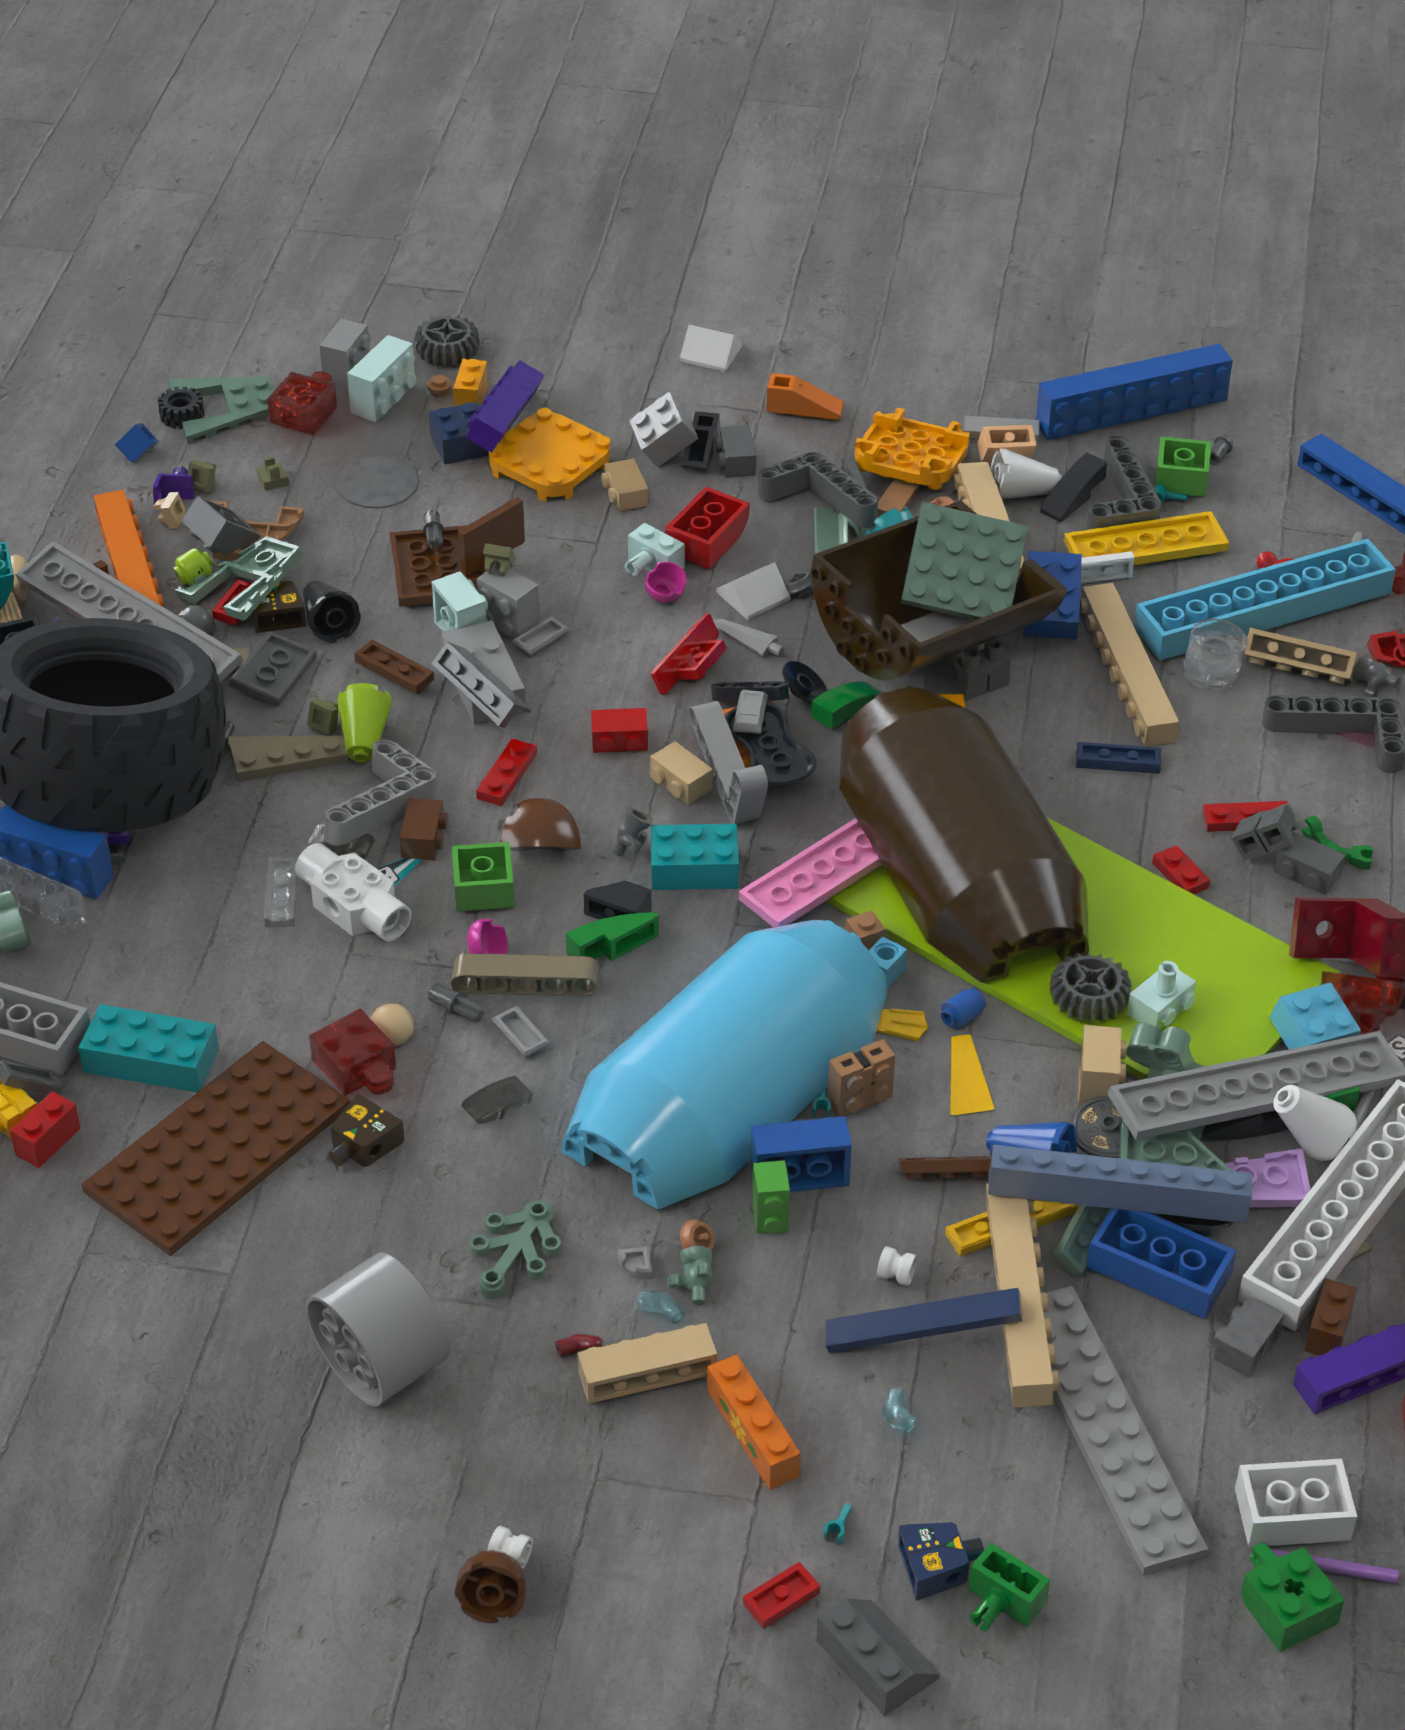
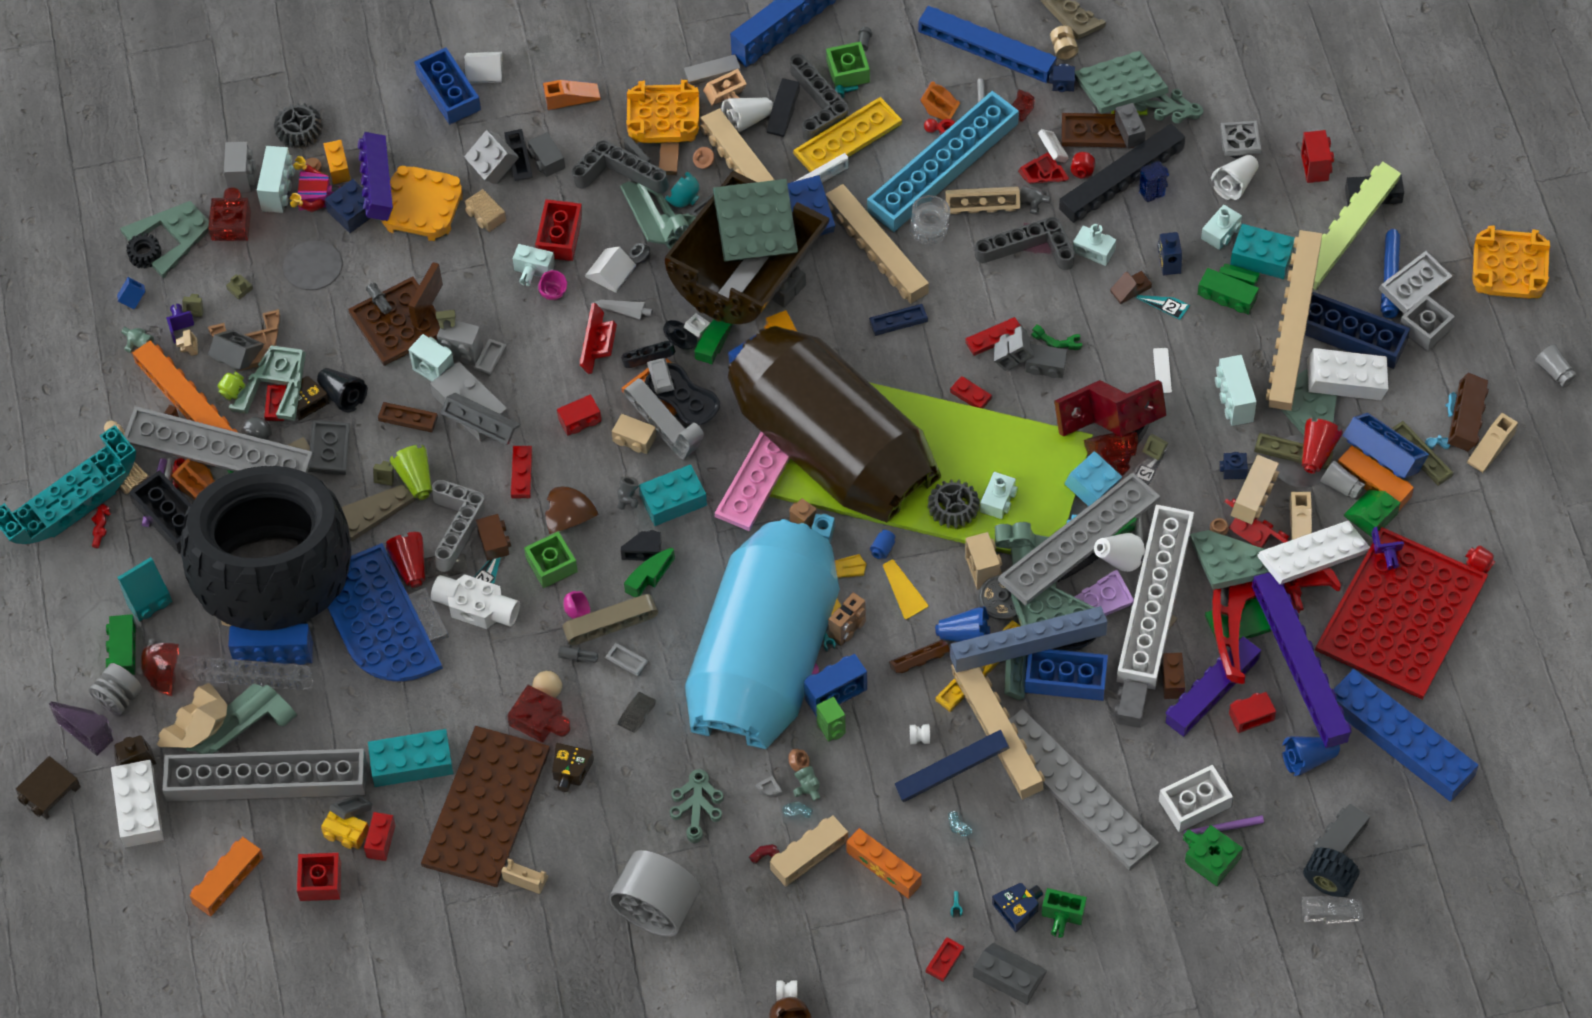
camera: 20 degrees left, 15 degrees up
(112, 483) = (135, 337): none -> sand green piece
(213, 876) = (381, 621): none -> blue plate
(214, 1252) = (524, 877): none -> tan hinge
(295, 812) = (408, 557): none -> red cone
(422, 397) = (312, 187): none -> torso
(652, 350) = (447, 85): none -> blue brick
(832, 677) = (696, 325): none -> white plate
(1288, 537) = (939, 102): none -> orange slope

